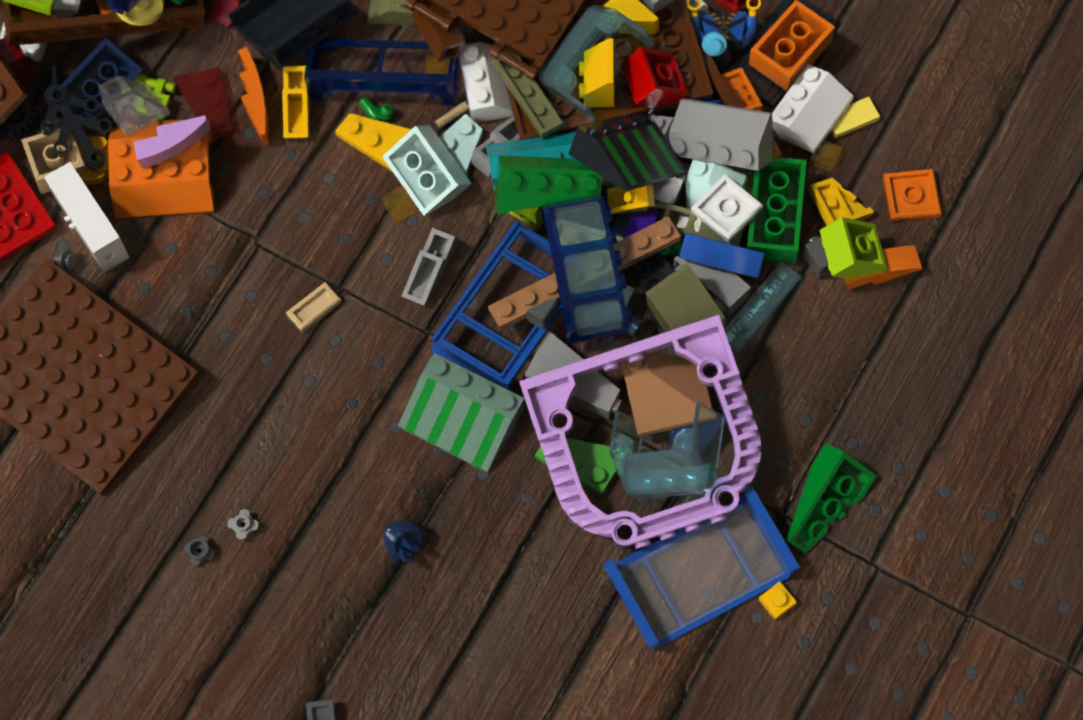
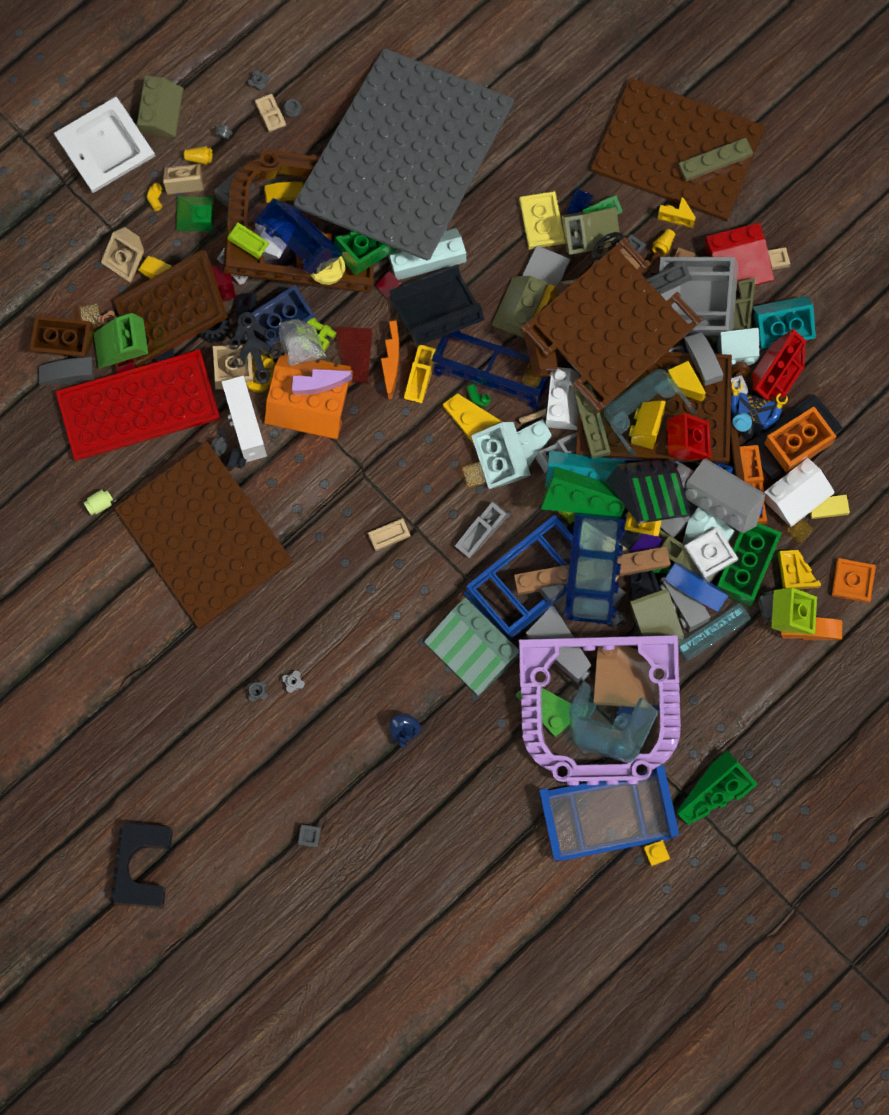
camera: 15 degrees right, 5 degrees up
(88, 272) = (234, 460): none -> black tile

